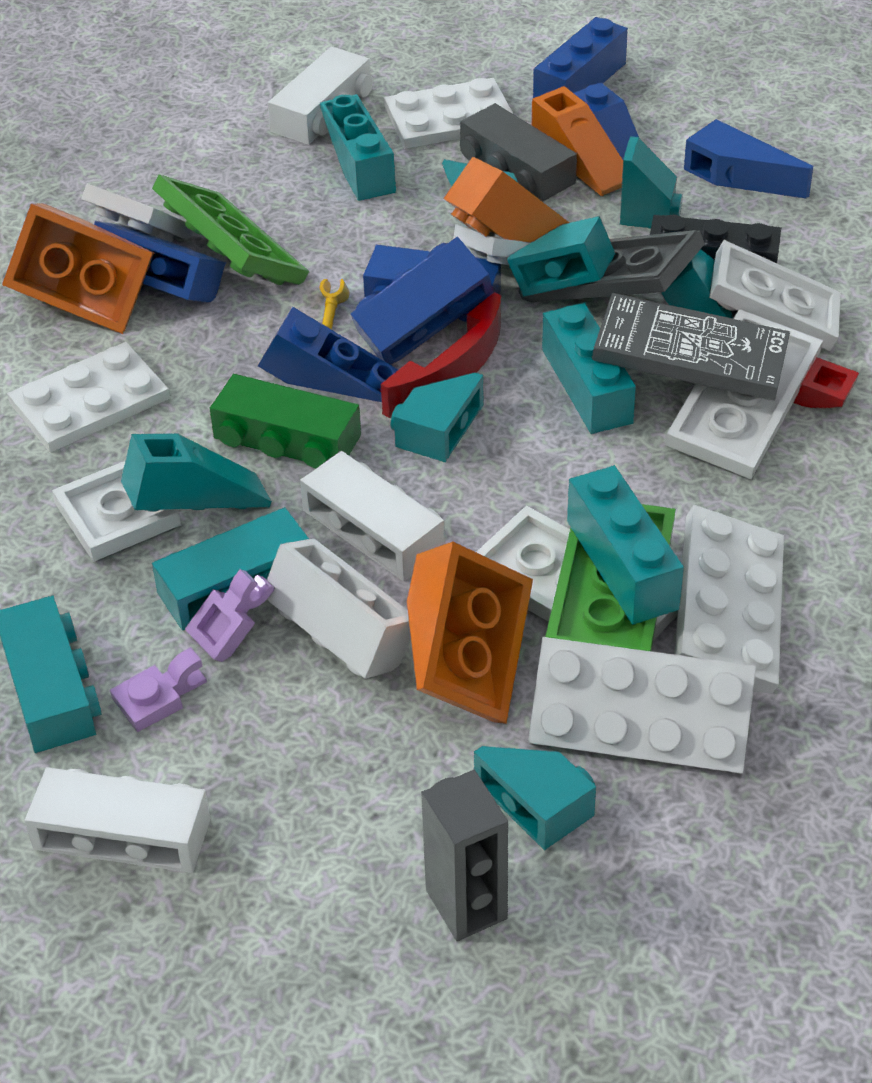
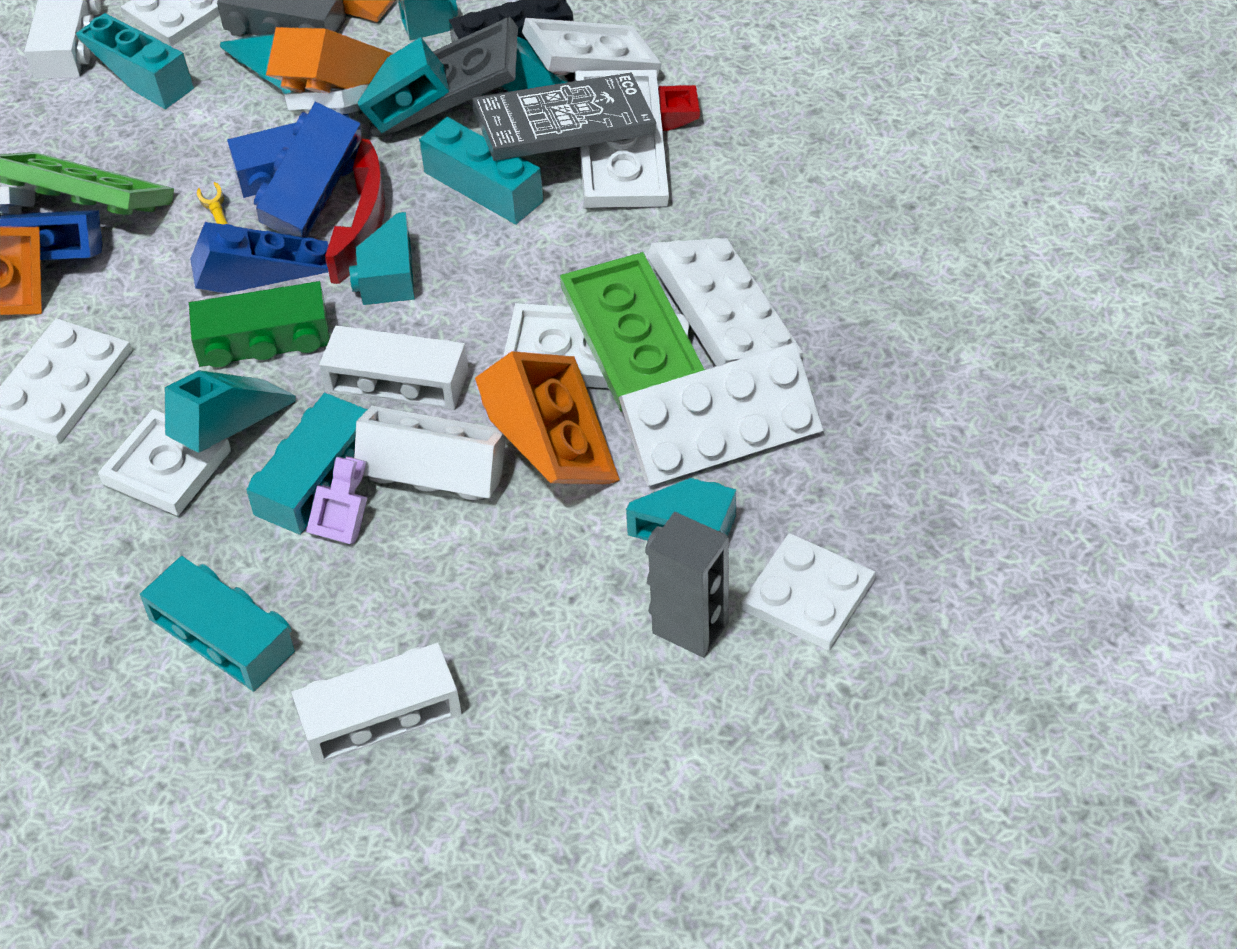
camera: 30 degrees left, 5 degrees up
(156, 695) = (322, 596): lavender plate -> none
(608, 930) = (808, 591): none -> white plate
(624, 544) = (634, 294): teal brick -> none

